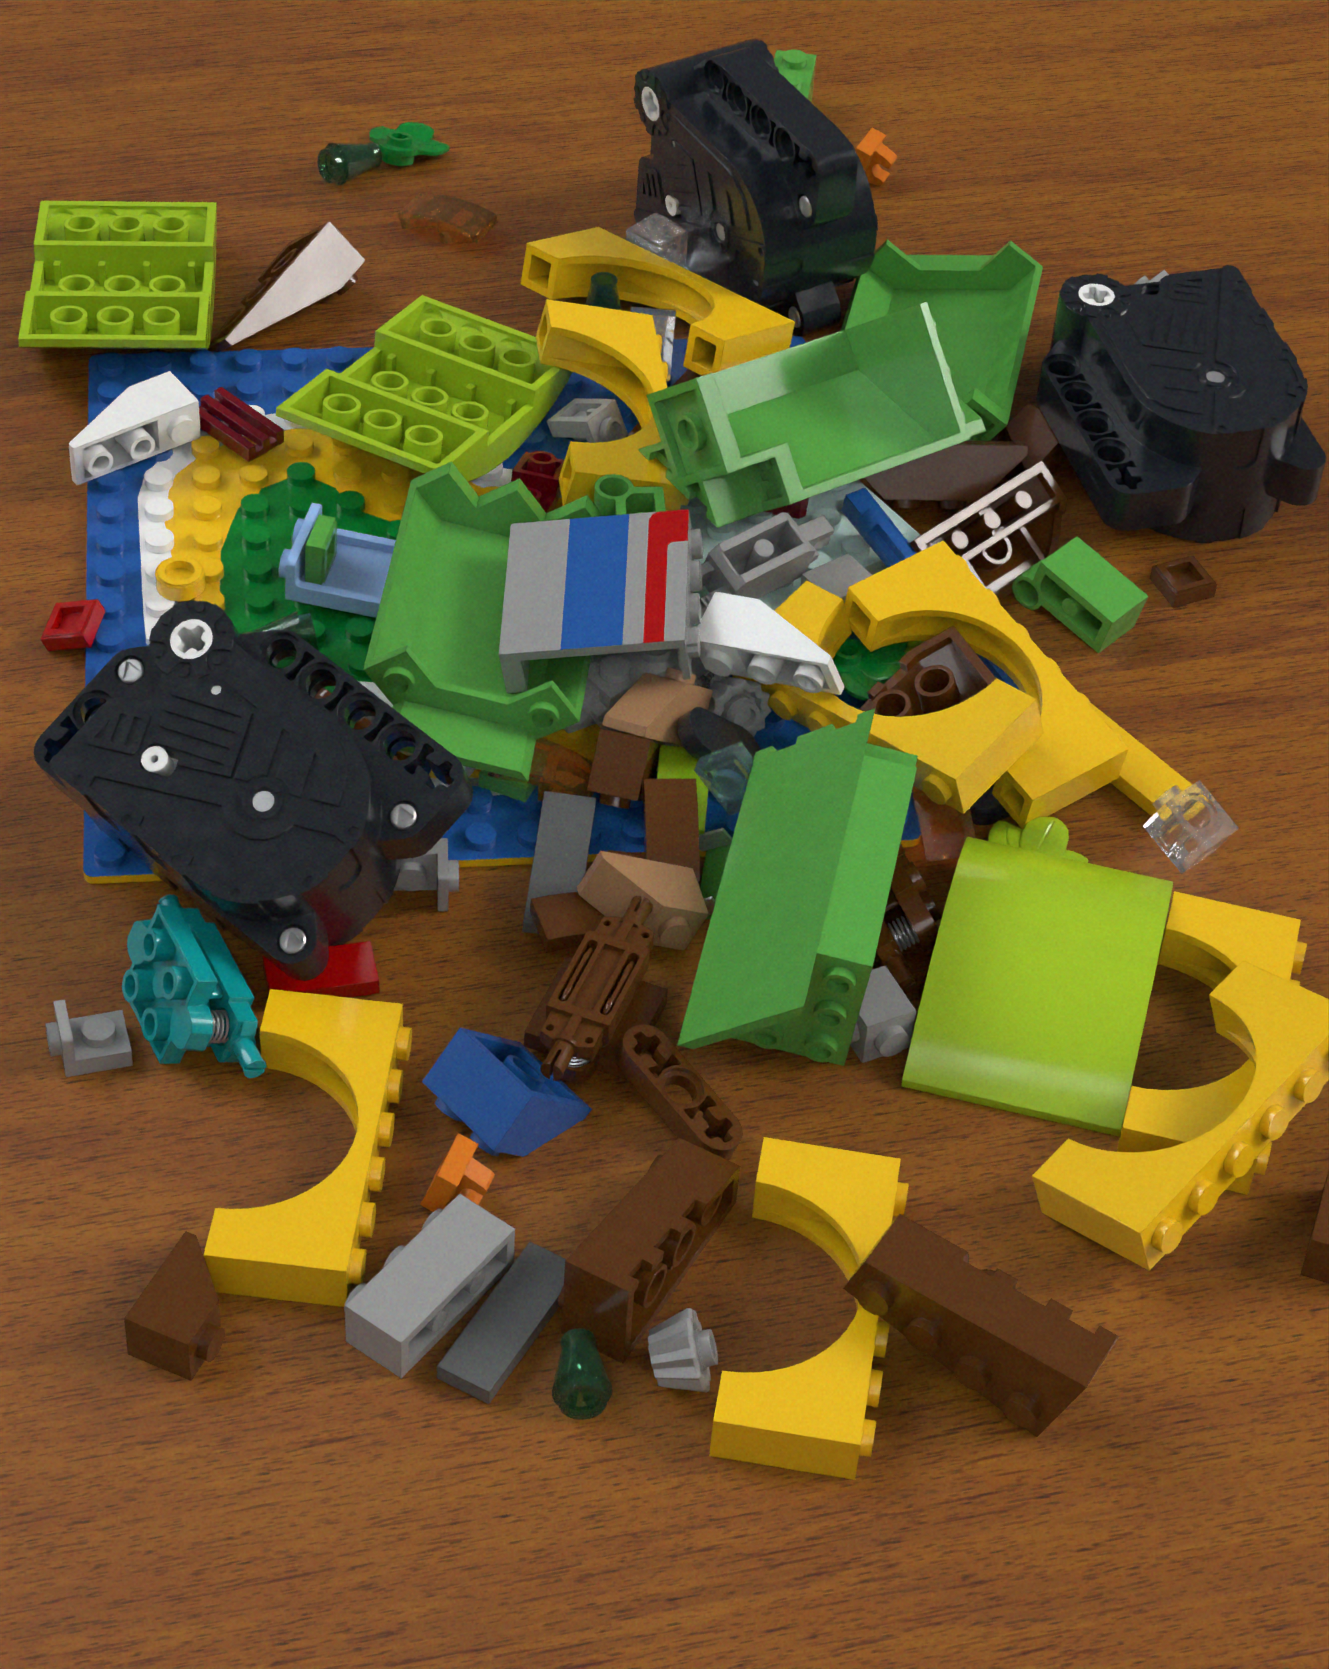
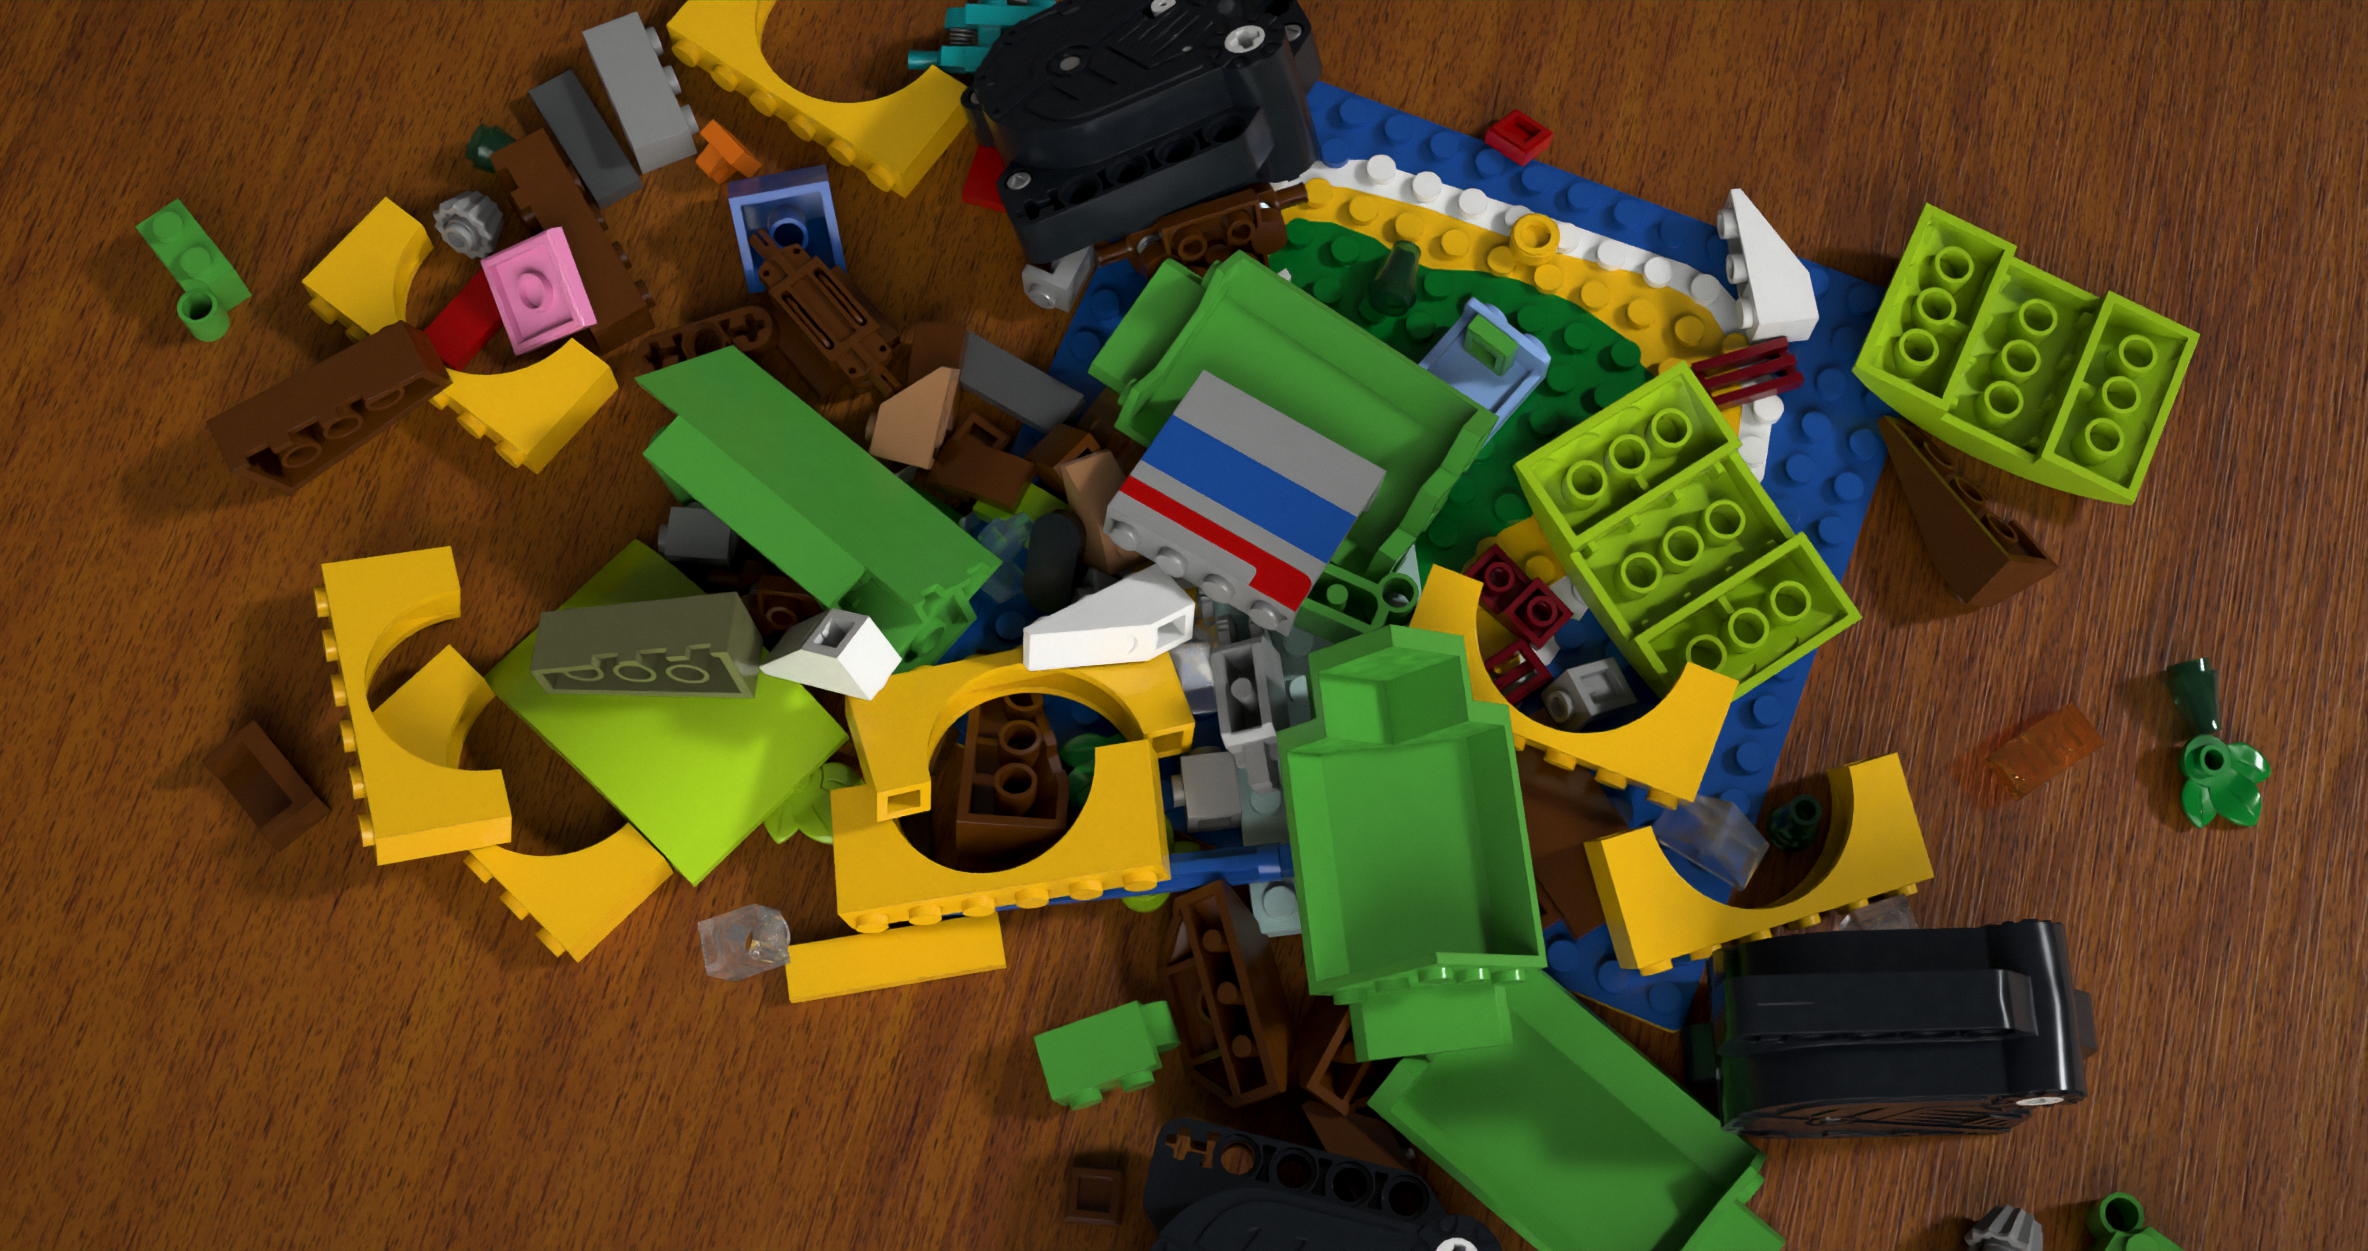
camera: 120 degrees right, 25 degrees up
(729, 1226) = (538, 291): none -> bright pink tile
(780, 1317) = (465, 324): none -> red tile
(904, 1581) = (197, 267): none -> bright green hinge
(945, 790) = (835, 653): none -> white slope
(1027, 925) = (650, 649): none -> olive wedge

